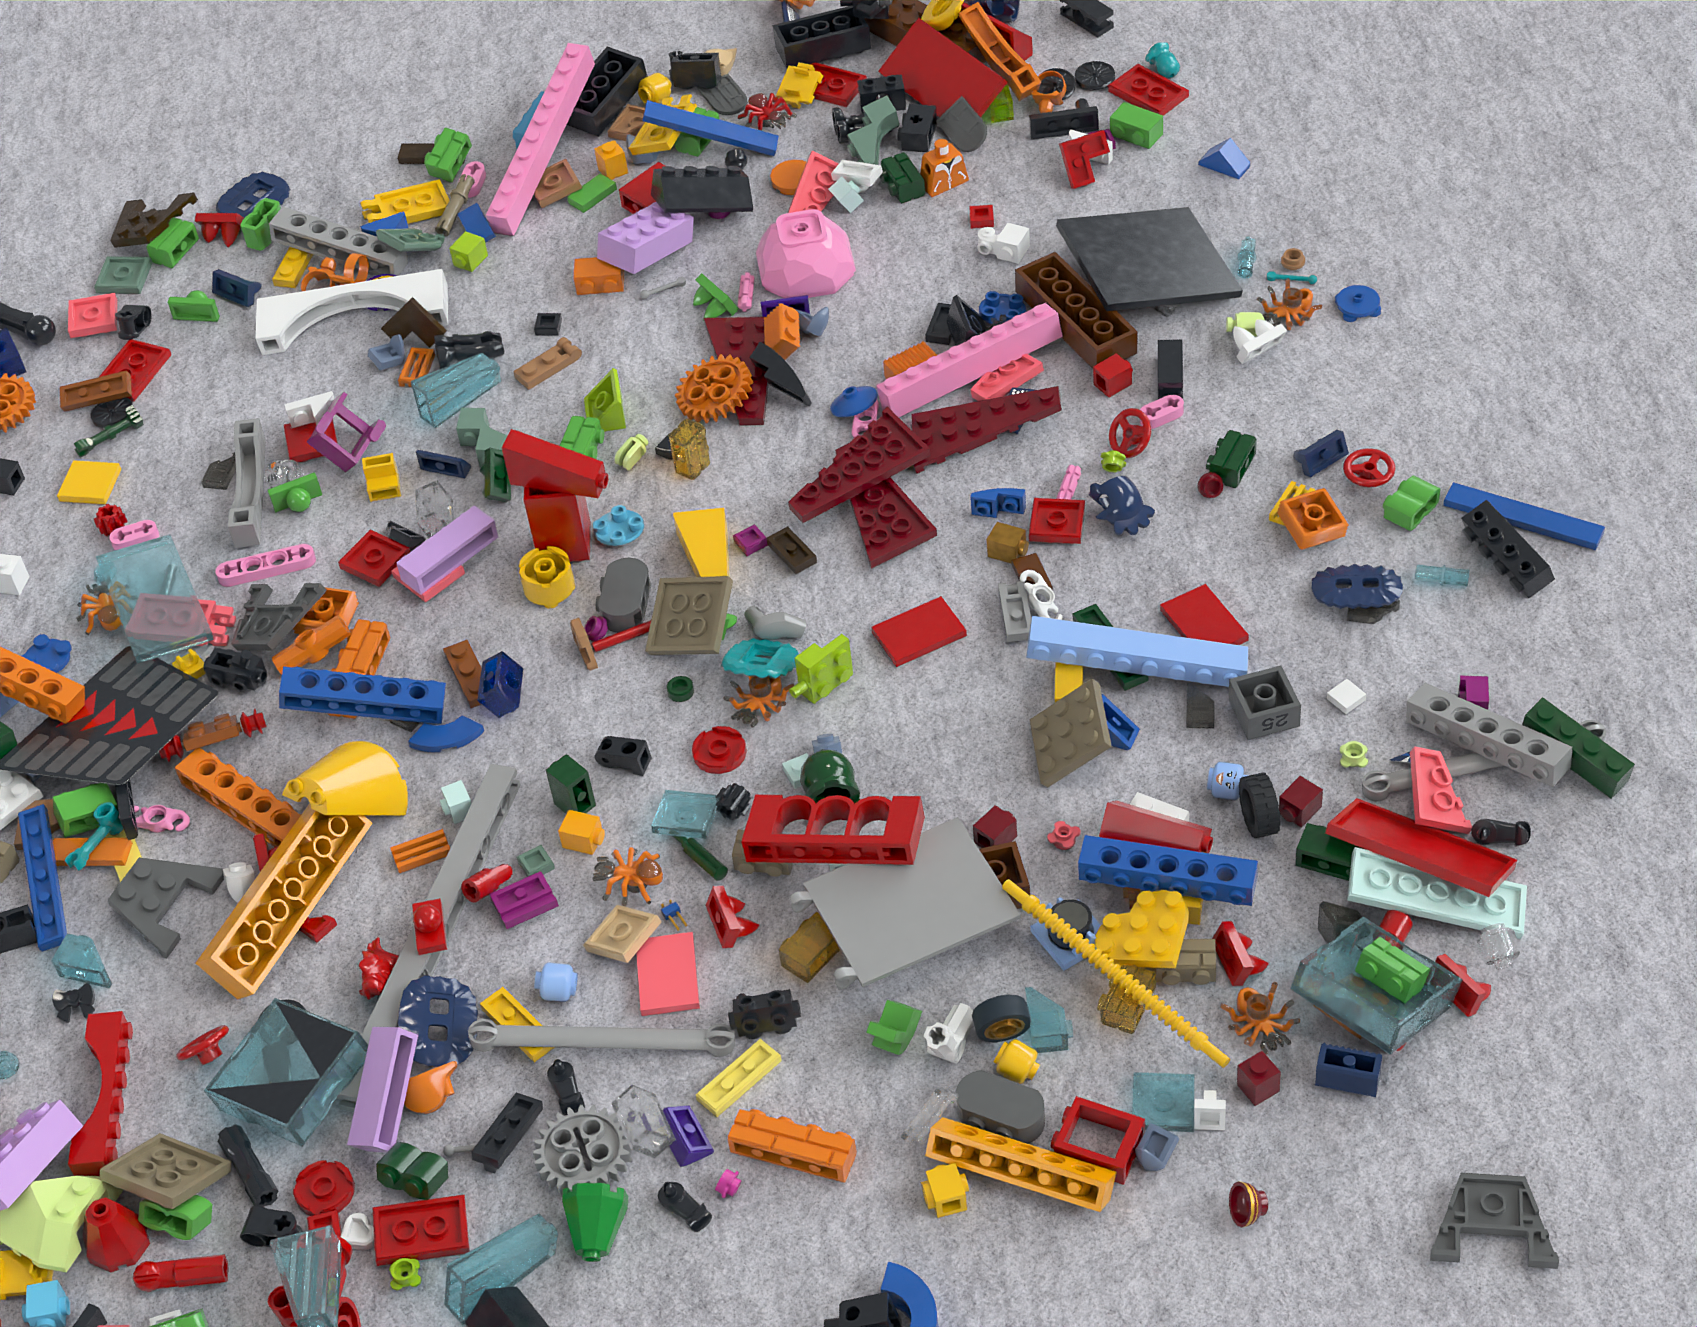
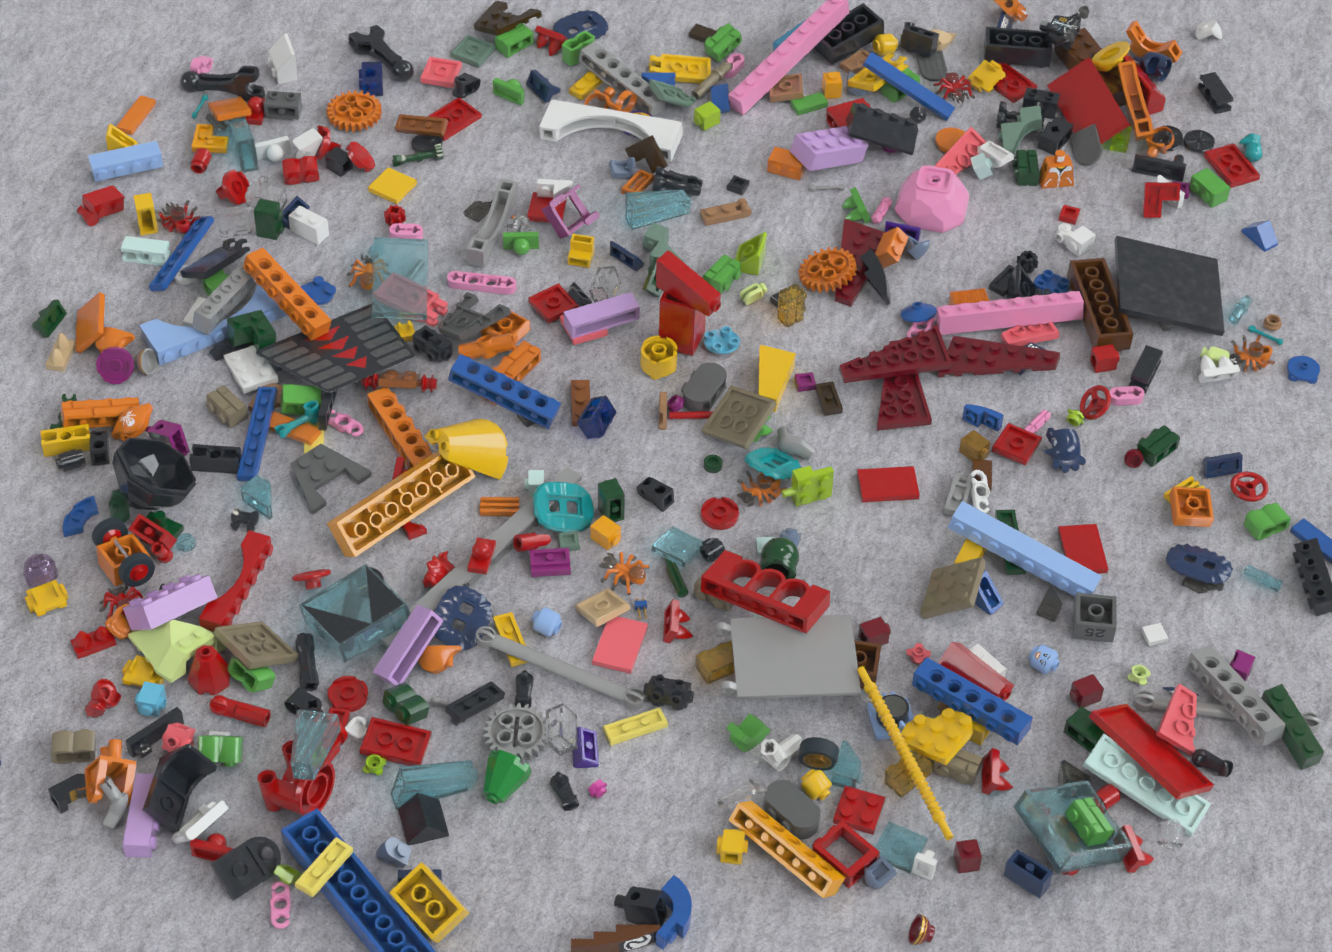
camera: 15 degrees right, 0 degrees up
(30, 459) = (360, 156): none -> red tile
(238, 879) = (377, 480): white plate -> none
(437, 737) = (549, 438): blue tile -> none
(501, 801) = (563, 493): none -> teal piece
(792, 1144) = (648, 780): orange brick -> none
(961, 287) = (1028, 261): none -> black gear
(1087, 1072) = (859, 809): none -> red plate
(1256, 1012) = (988, 815): animal -> none
(1259, 805) = (1055, 682): black tyre -> none

